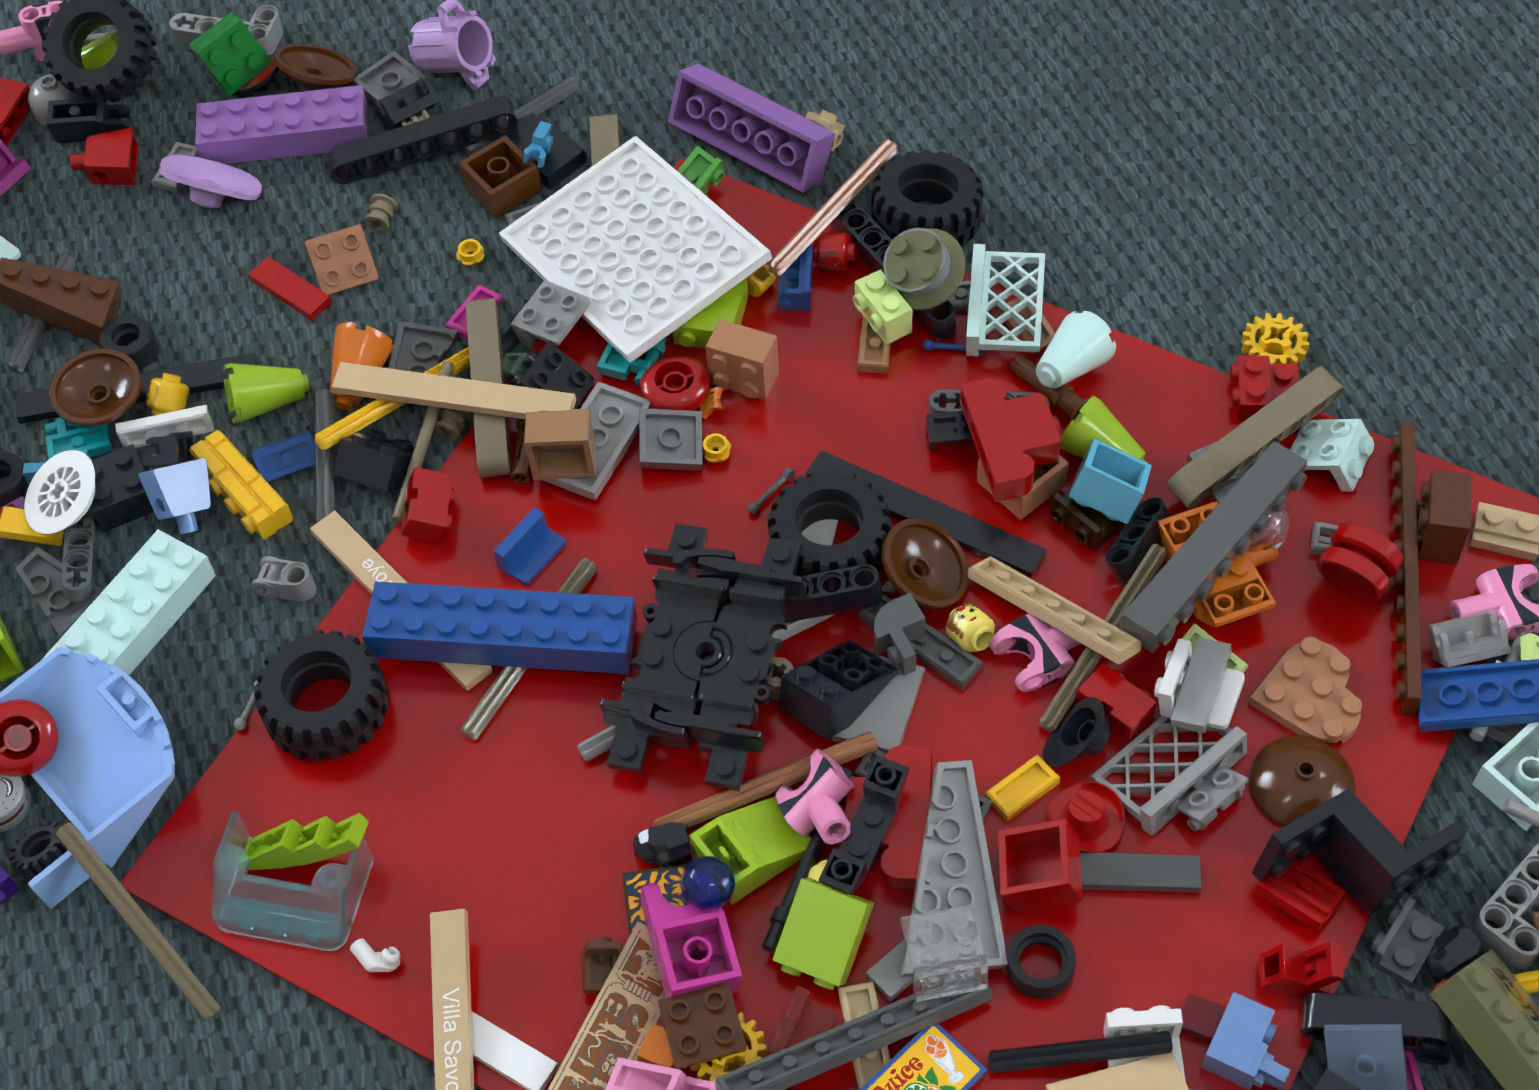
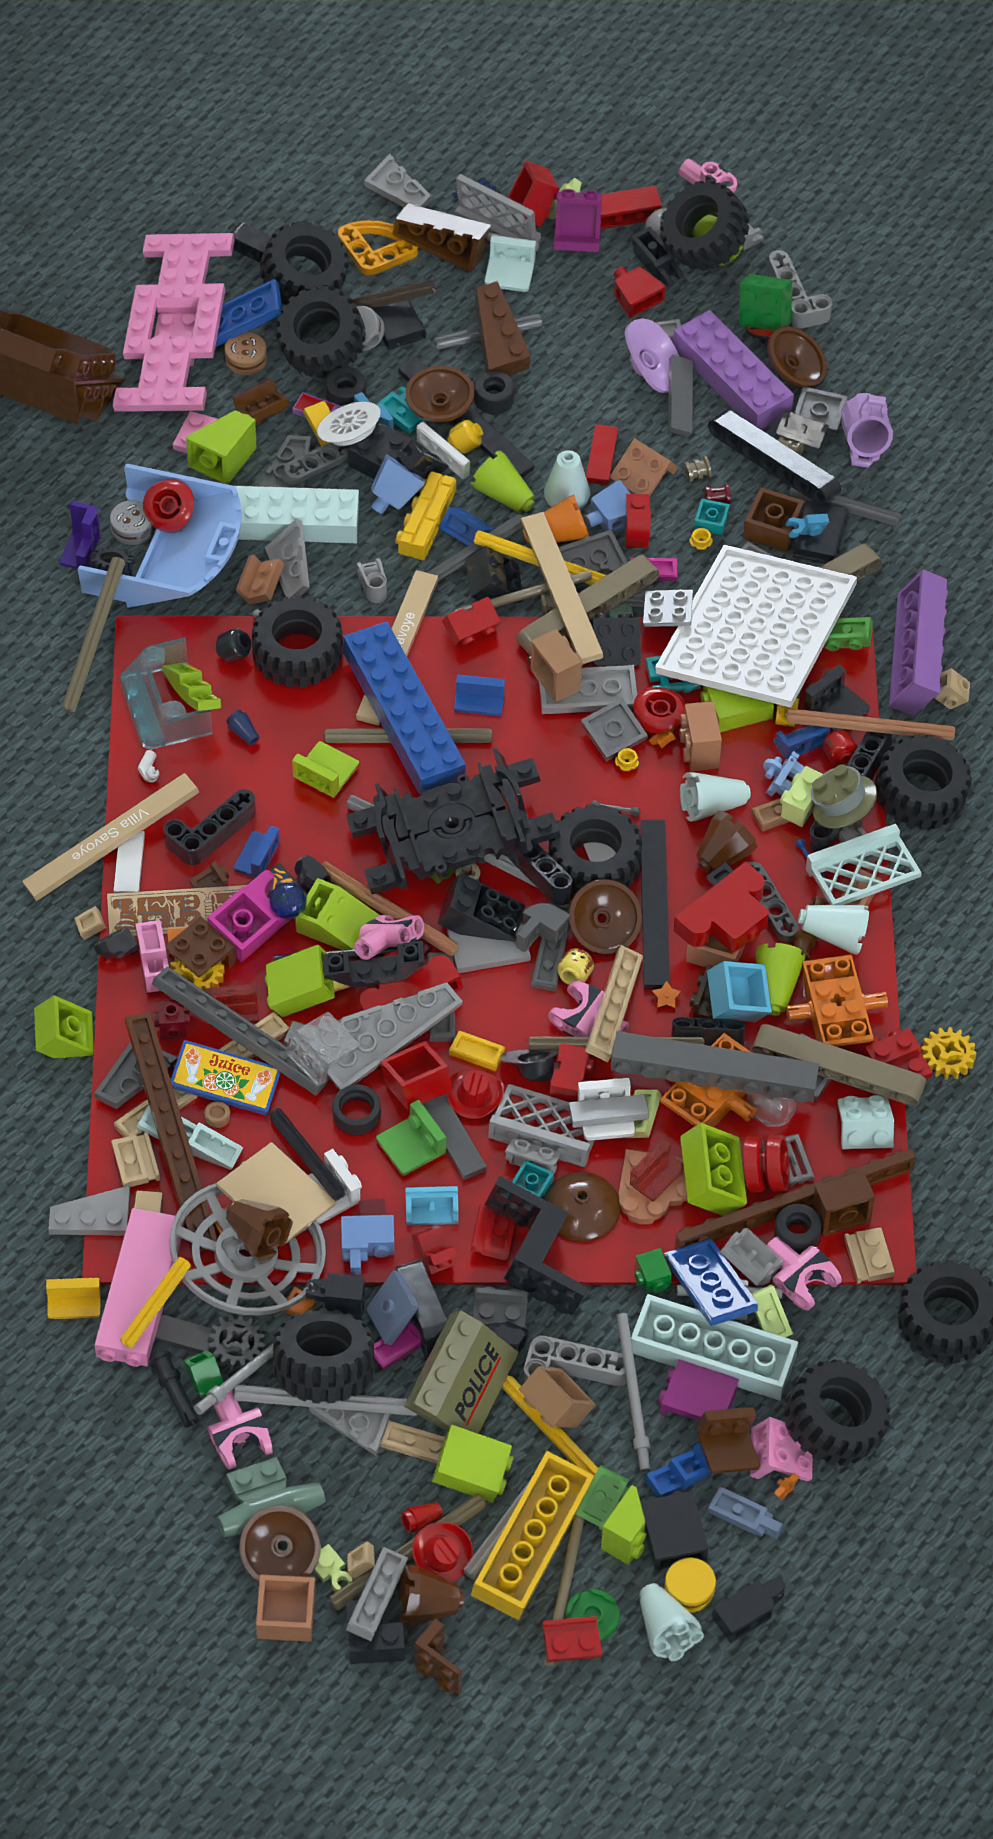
camera: 55 degrees right, 0 degrees up
(192, 651) = (291, 550): none -> light grey wing
(194, 697) = (259, 579): none -> nougat bracket
(272, 768) = (233, 645): none -> black head
(275, 184) = (680, 395): none -> dark grey tile
(306, 330) = (567, 479): none -> light aqua cone
(375, 303) = (608, 508): none -> medium blue torso
(396, 817) = (242, 726): none -> dark blue cone
(414, 288) = (637, 521): none -> red brick
(426, 212) = (718, 494): none -> dark red bush
(450, 229) = (712, 516): none -> teal piece
(519, 755) = (324, 768): none -> lime bracket
(520, 919) = (238, 809): none -> black beam
(589, 892) = (258, 852): none -> blue panel
(770, 227) = (833, 696): none -> black bracket
(821, 393) = (707, 794): none -> light aqua cone
(831, 315) = (774, 768): none -> light blue hips
(895, 405) = (724, 843): none -> reddish brown cone
(1058, 559) = (666, 995): none -> orange piece
(1122, 917) = (413, 1140): none -> bright green bracket
(1171, 405) = (836, 1002): none -> orange slope
(1228, 944) = (432, 1205): none -> medium azure hinge
(1249, 817) = (534, 1178): none -> teal piece
(1308, 677) = (656, 1171): none -> clear red panel
(1339, 619) = (713, 1169): none -> lime brick
(1439, 749) = (652, 1271): none -> green brick
(1450, 563) = (798, 1215): none -> black tyre

